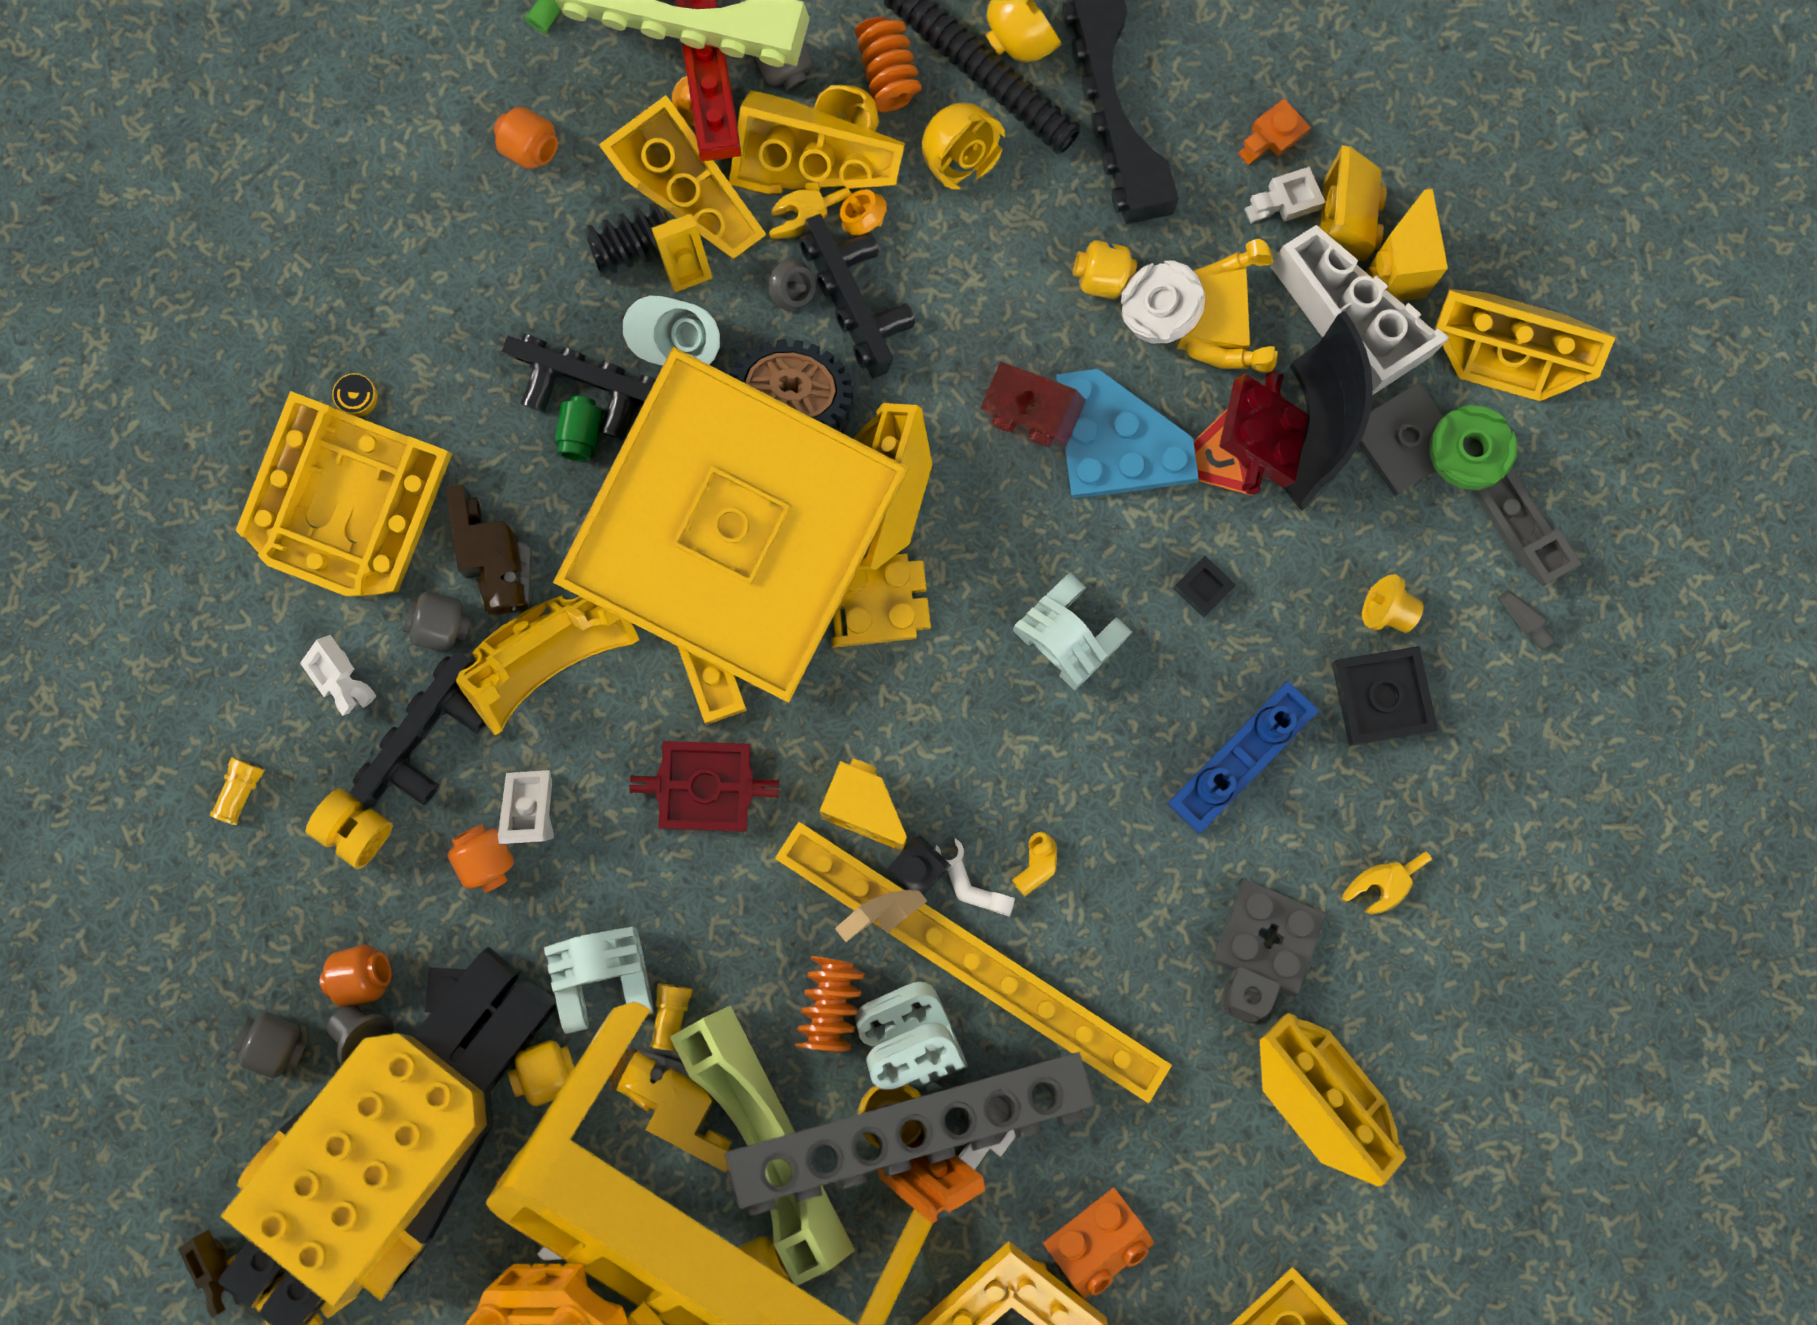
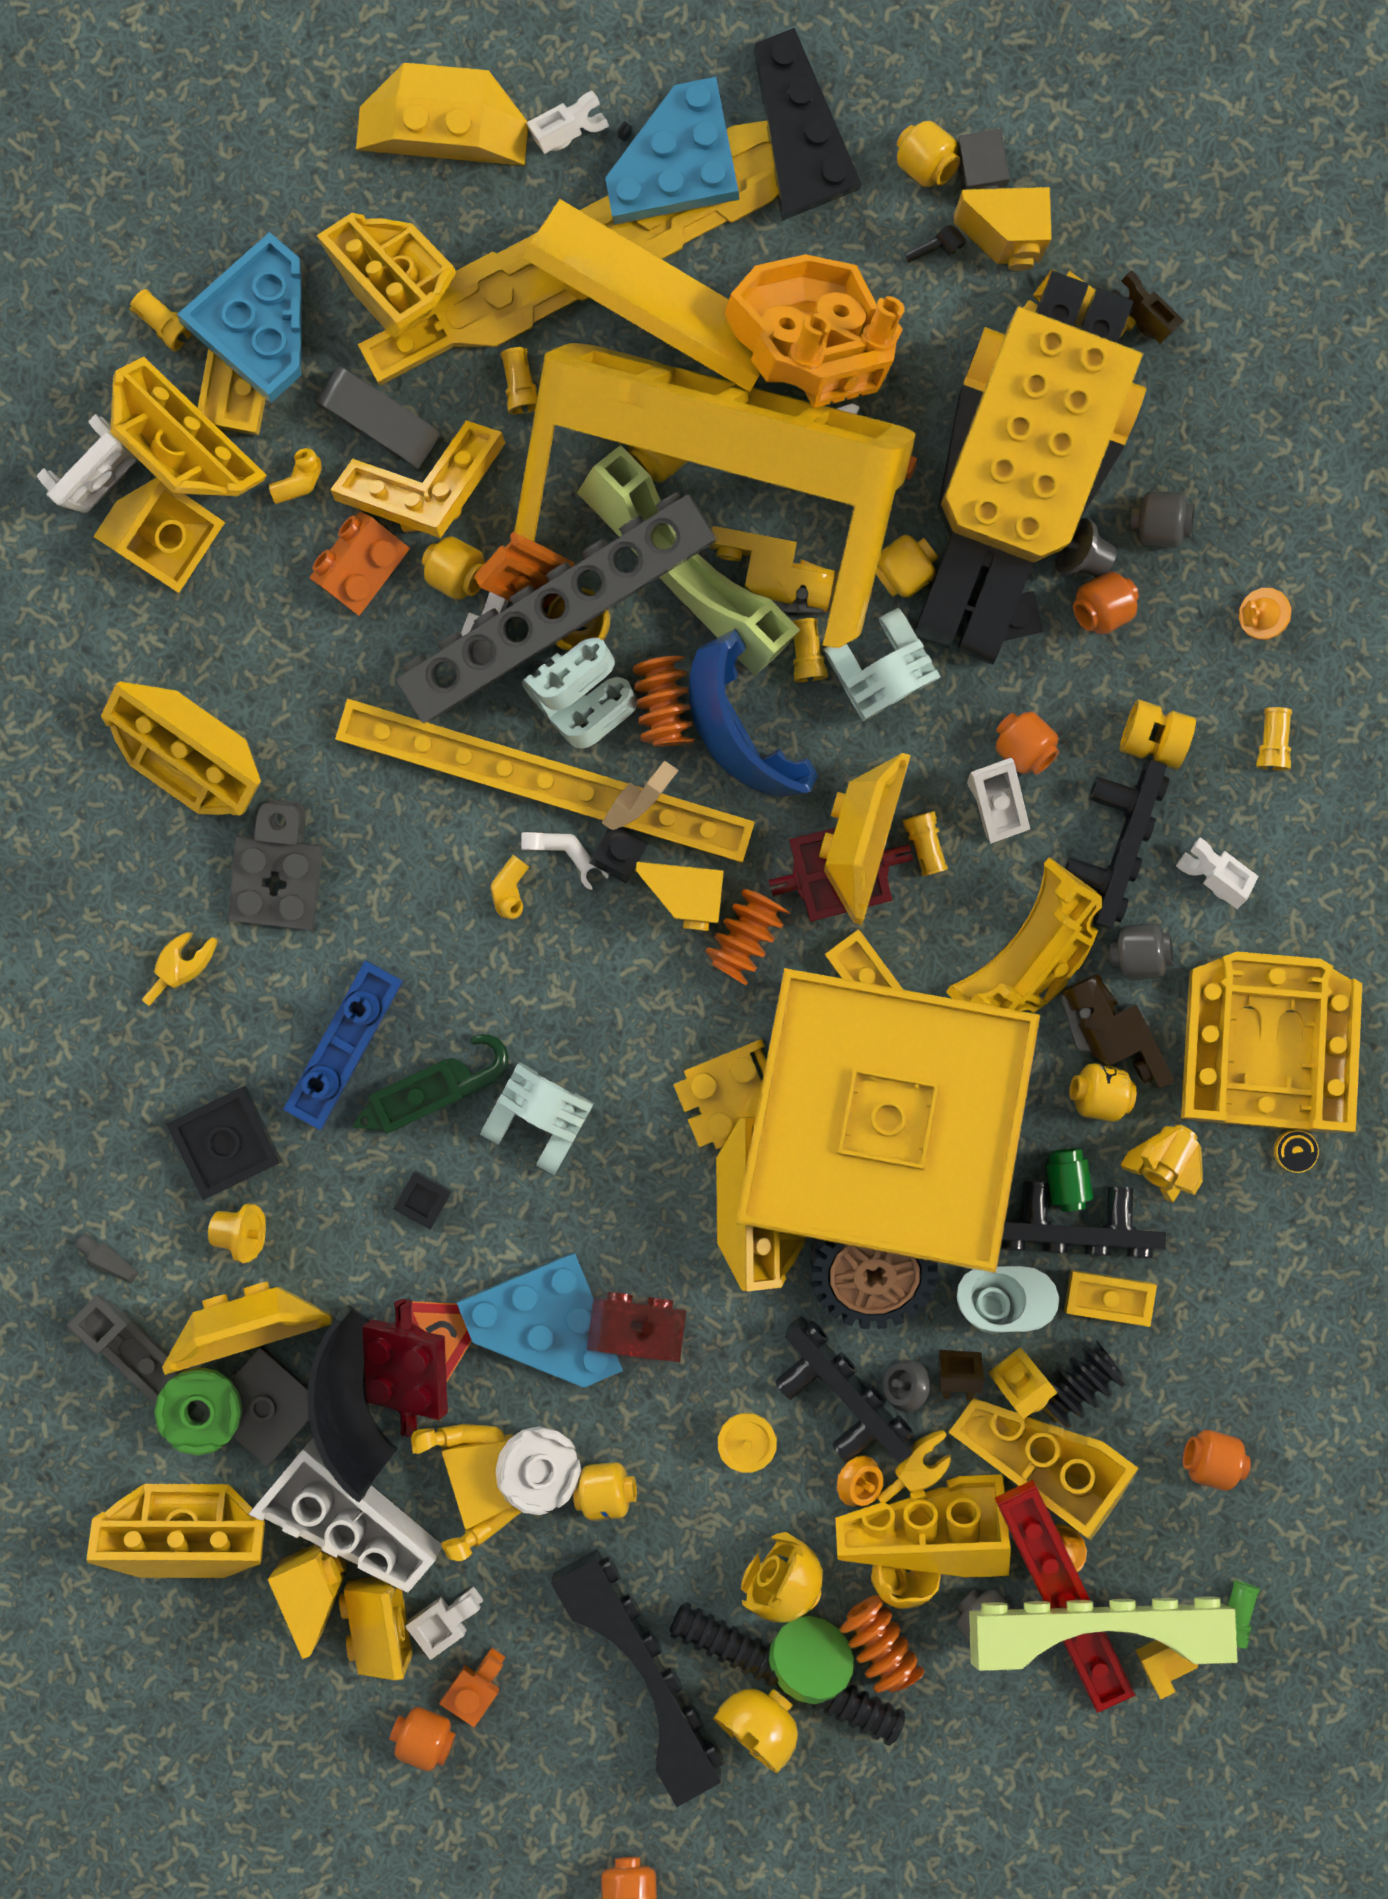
camera: 170 degrees right, 10 degrees up
(201, 919) = (1265, 613): none -> light orange hat
(476, 416) = (1168, 1161): none -> yellow brick
(518, 499) = (1103, 1092): none -> yellow head
(575, 310) = (1110, 1298): none -> yellow plate
(612, 789) = (926, 842): none -> yellow pin
(671, 812) = (861, 833): none -> yellow wedge
(737, 282) = (960, 1372): none -> dark brown tile
(777, 956) = (724, 732): none -> blue windscreen
(817, 748) = (745, 935): none -> orange piece
(955, 66) = (811, 1660): none -> bright green tile
(958, 273) = (747, 1442): none -> yellow piece
(1004, 1208) = (452, 567): none -> yellow head
(1168, 689) = (431, 1089): none -> dark green plate
(1335, 99) = (422, 1739): none -> orange head
(1407, 516) = (243, 1324): none -> yellow wedge

